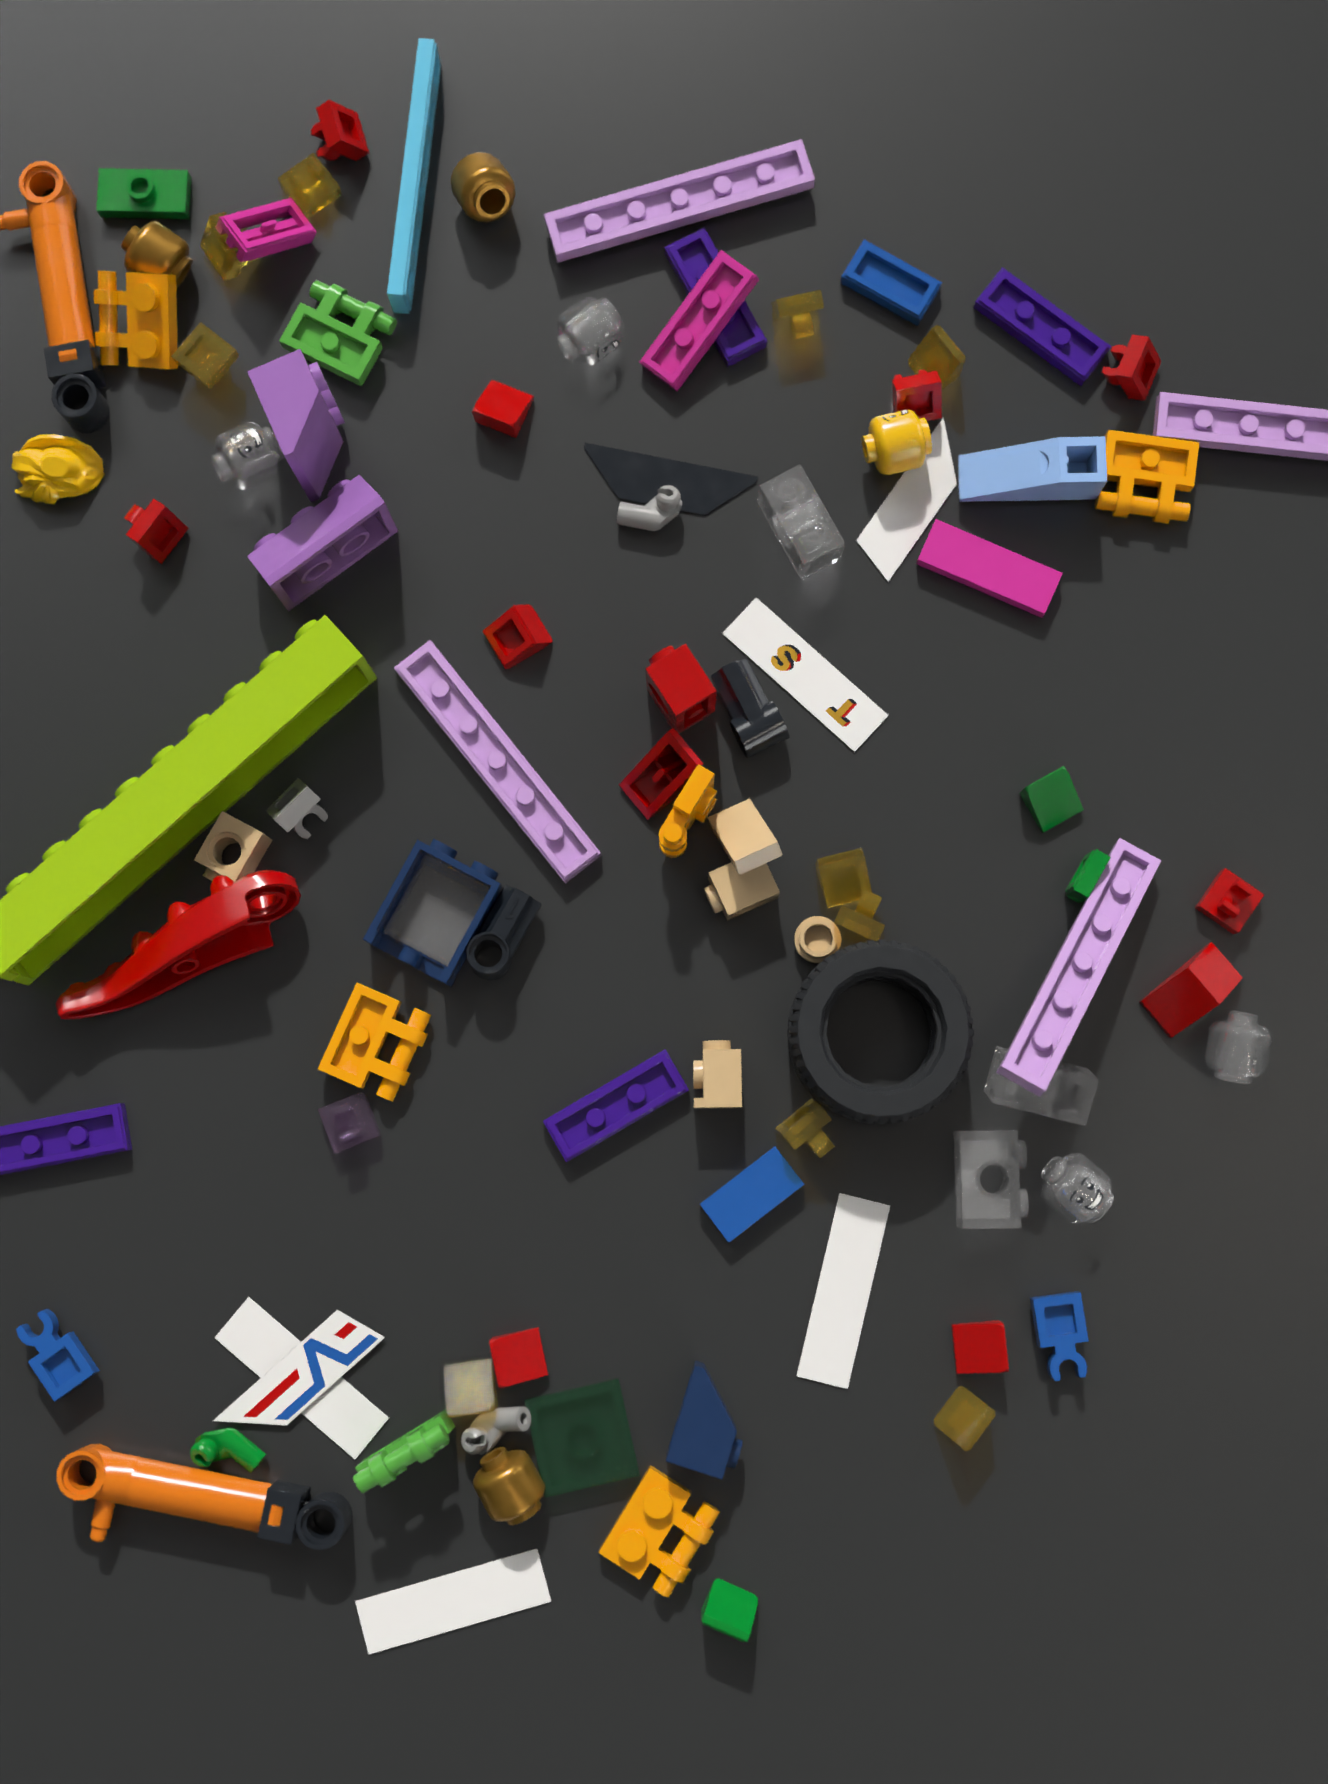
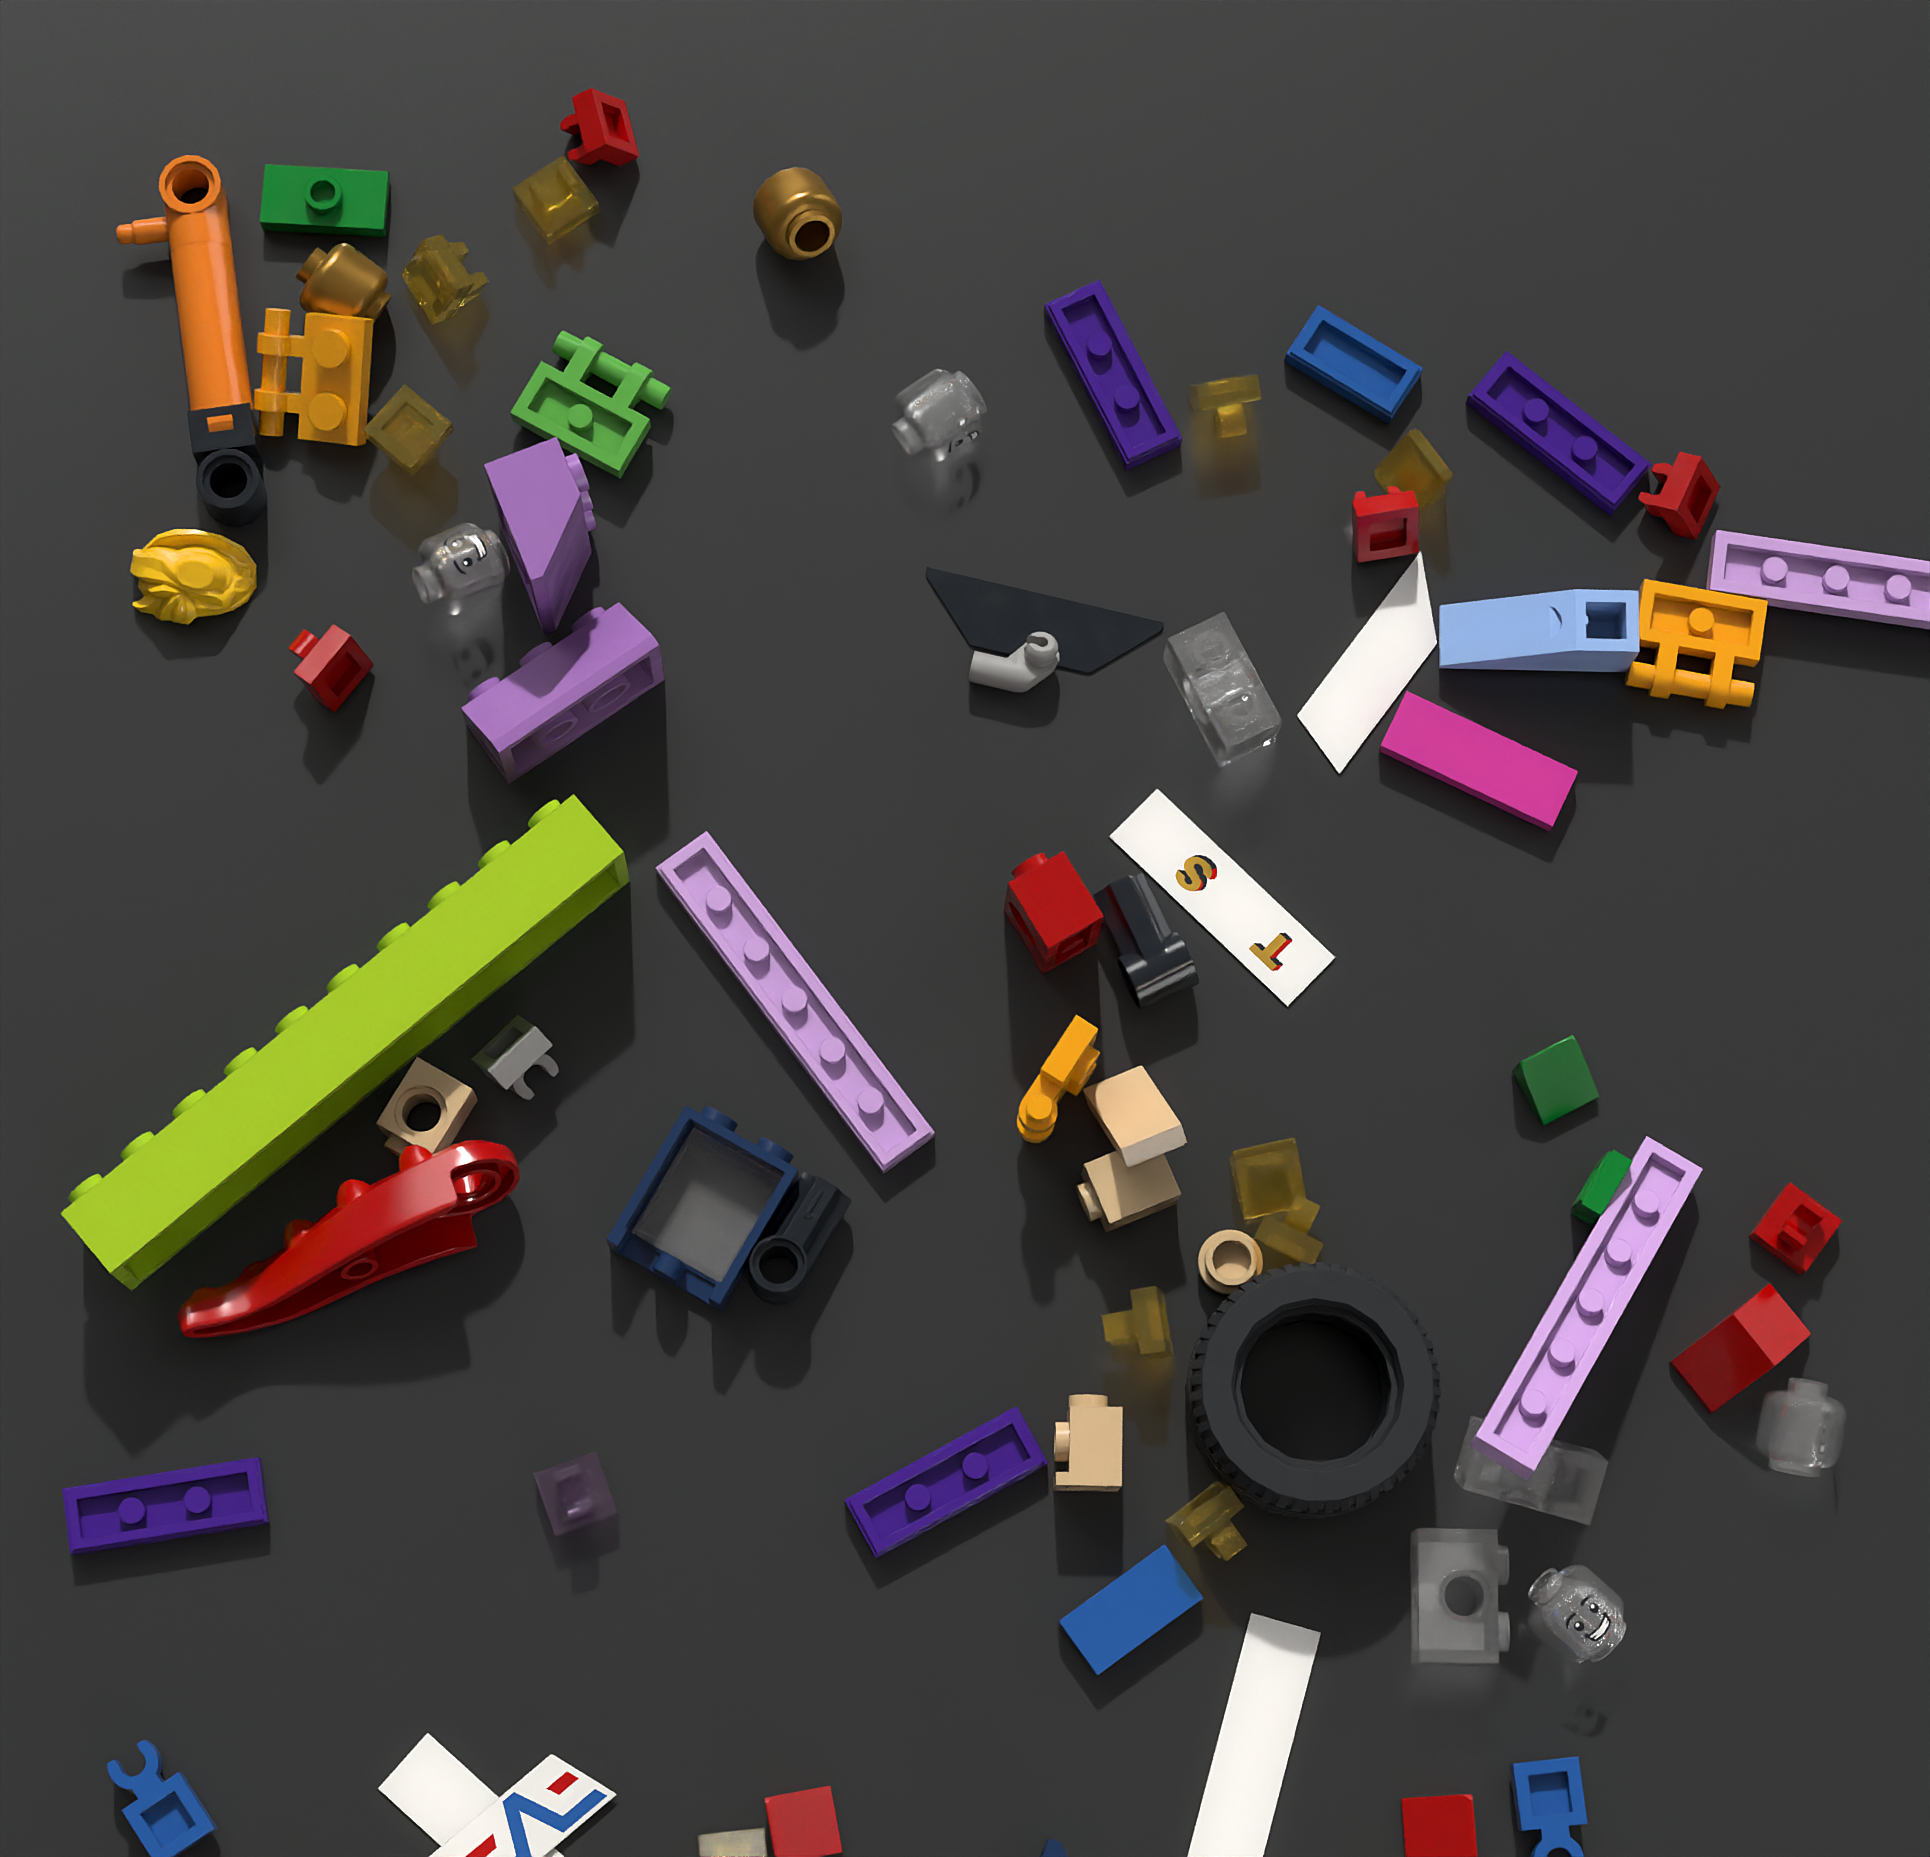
camera: 10 degrees left, 5 degrees down
(272, 235) = (481, 289): dark pink tile -> none
(360, 1038) = (597, 1373): light orange plate -> none
(414, 176) = (703, 195): medium azure tile -> none
(502, 408) = (814, 516): red slope -> none
(517, 635) = (826, 829): red slope -> none
(660, 774) = (1021, 1028): red slope -> none
(679, 200) = (1066, 242): lavender plate -> none
(699, 320) = (1089, 408): dark pink tile -> none
(756, 987) = (1143, 1324): none -> clear yellow tile
(897, 442) = (1356, 585): yellow head -> none

